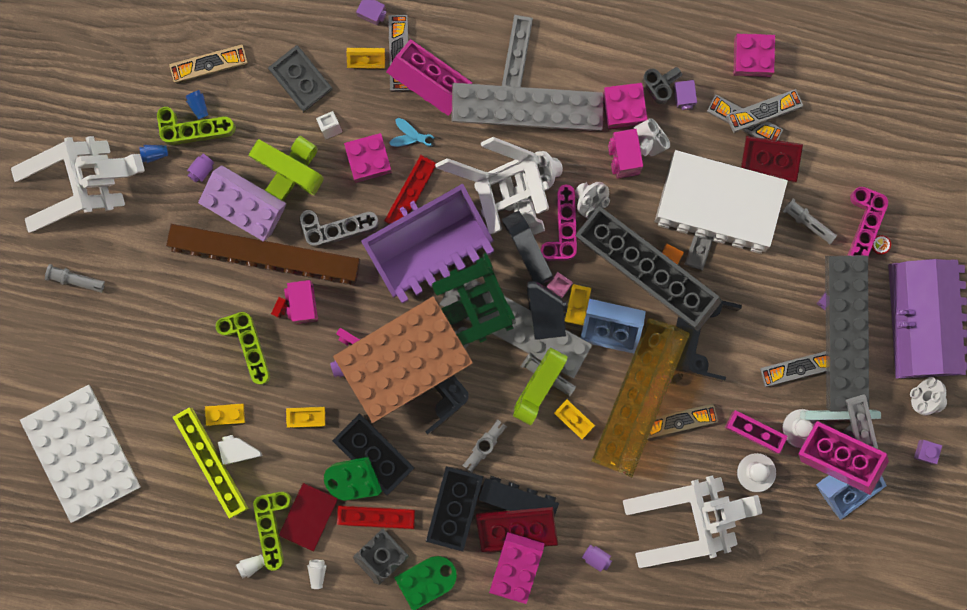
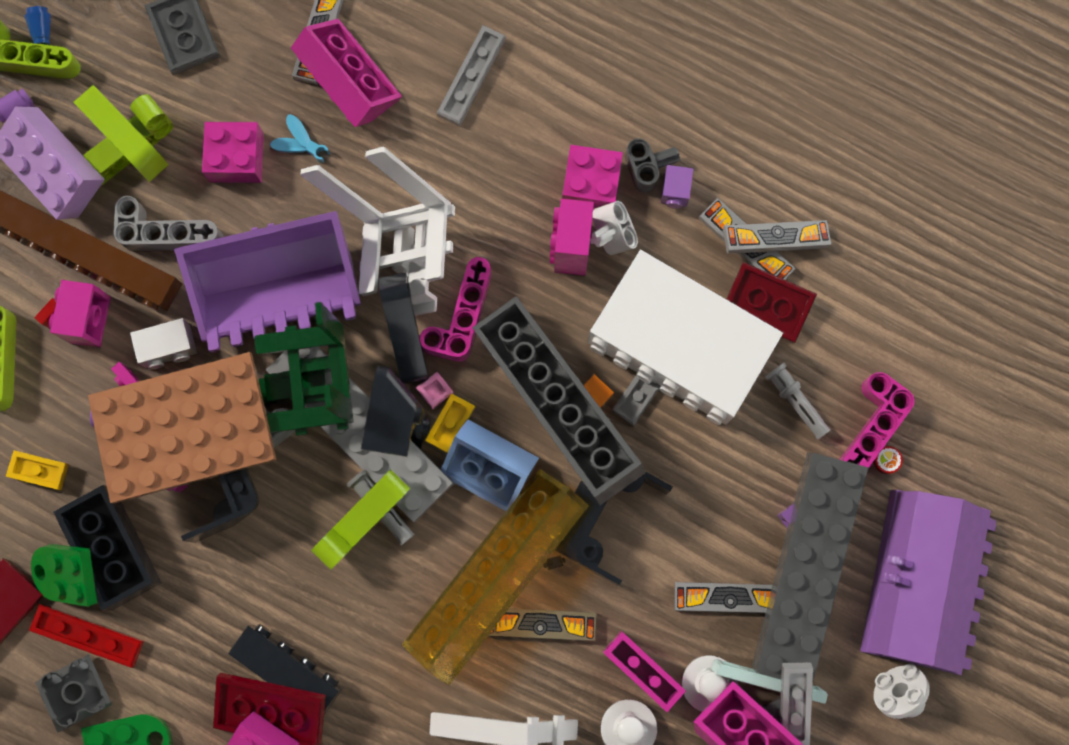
camera: 15 degrees right, 5 degrees down
(329, 125) = (199, 99): white slope -> none
(364, 306) = (163, 344): none -> white brick
(365, 57) = (272, 26): yellow plate -> none
(412, 188) = (284, 204): red tile -> none
(454, 508) = (191, 657): black brick -> none
(477, 455) = (251, 587): light grey pin -> none
(527, 107) = (460, 142): light grey plate -> none
(549, 168) = (463, 230): white plate -> none
(574, 419) = (397, 579): yellow plate -> none
(591, 197) = (511, 281): white plate -> none
(754, 55) = (783, 160): dark pink brick -> none

